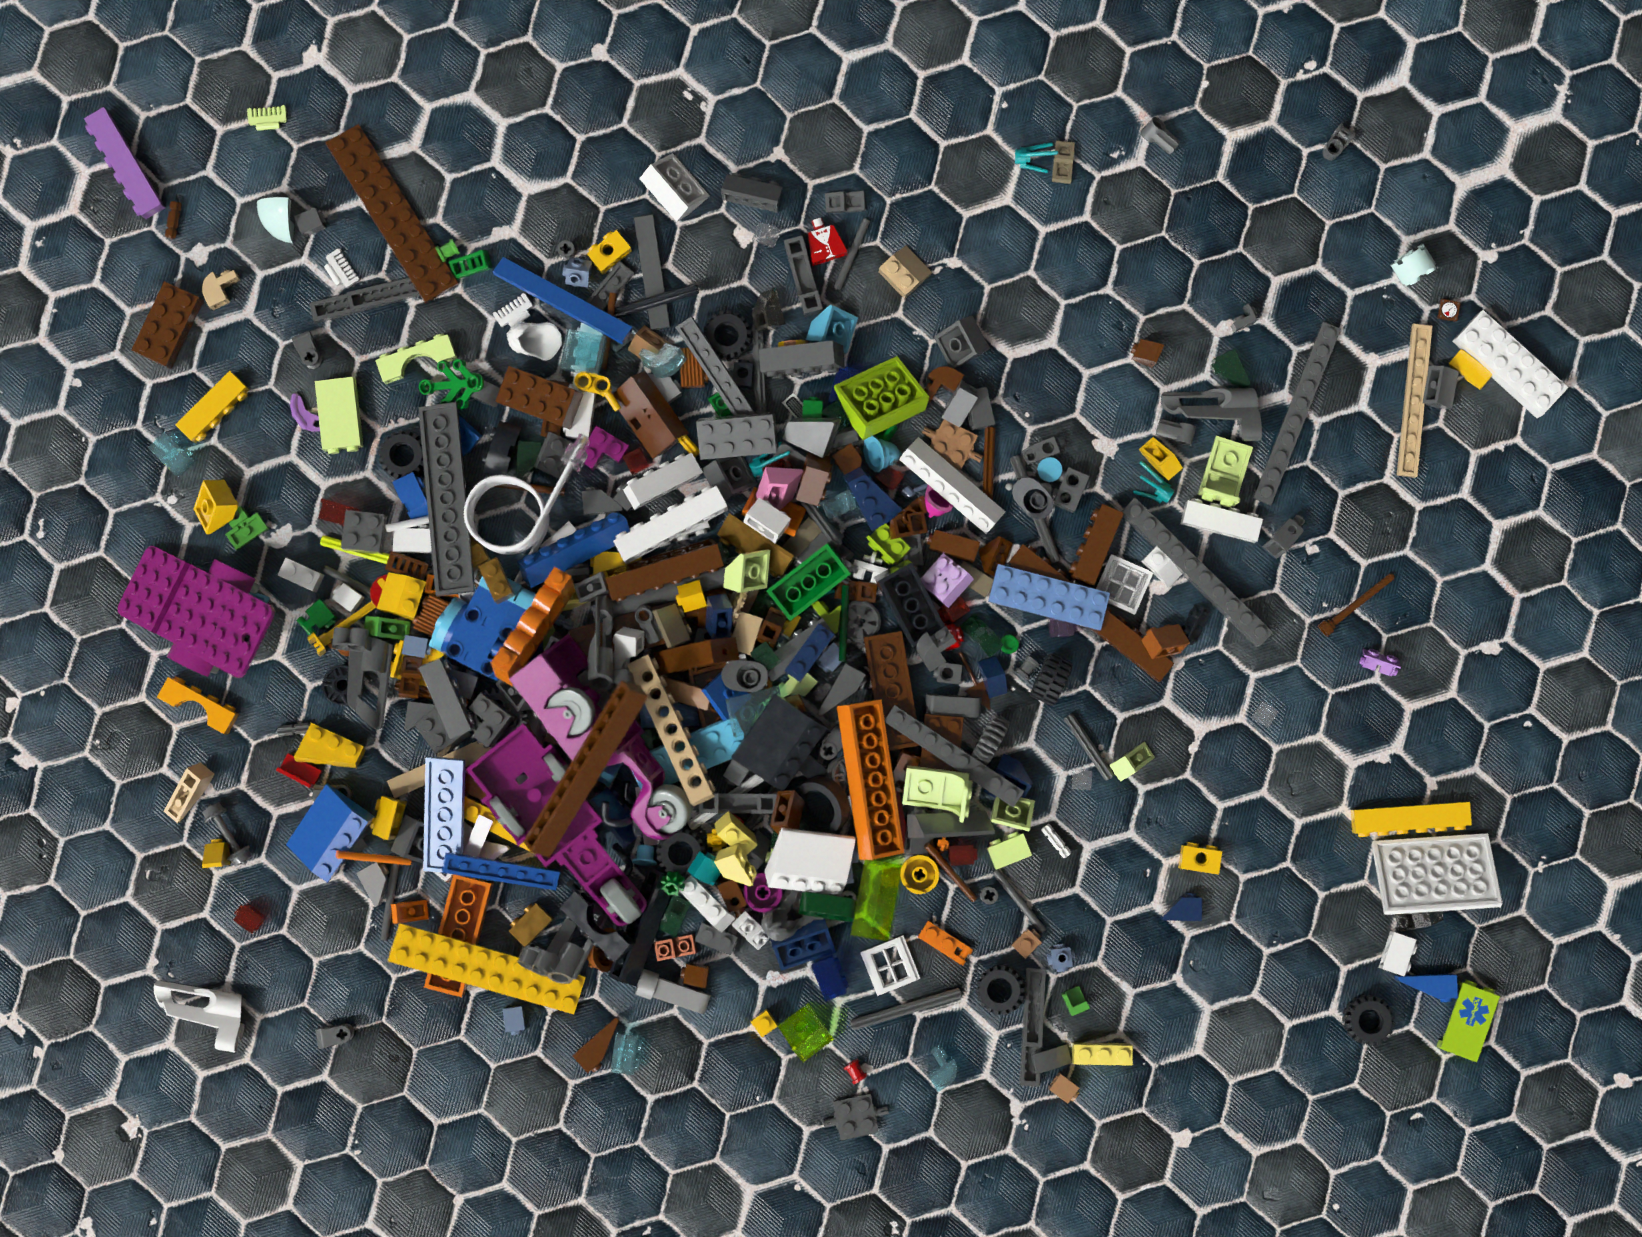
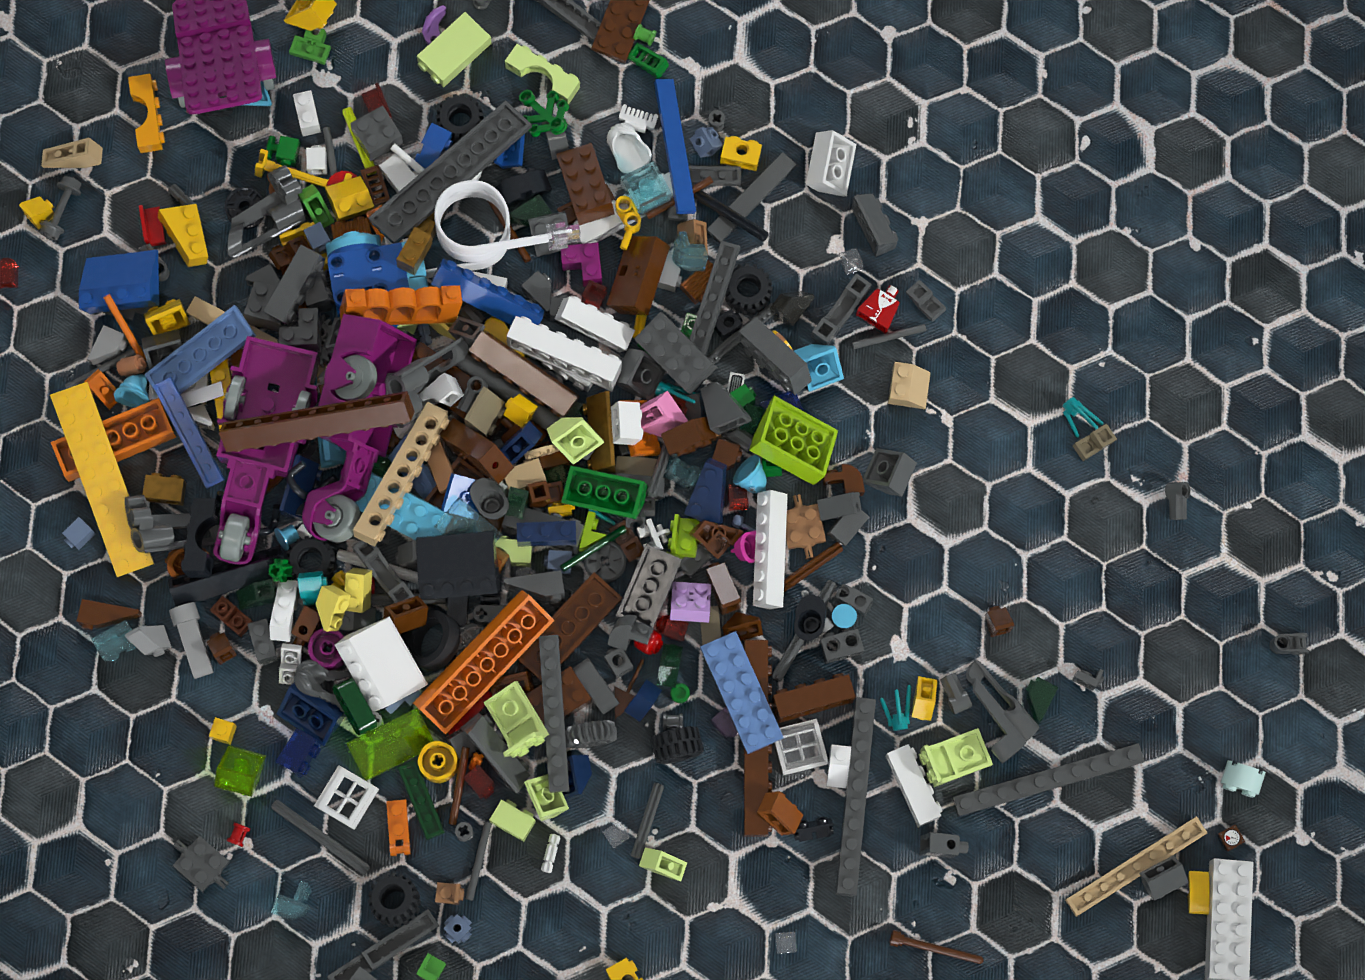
camera: 45 degrees right, 10 degrees down
(407, 875) = (131, 365): none -> nougat brick
(430, 889) = (132, 391): none -> medium azure piece
(647, 1026) = (149, 639): none -> light grey slope
(937, 909) = (421, 800): none -> dark green tile

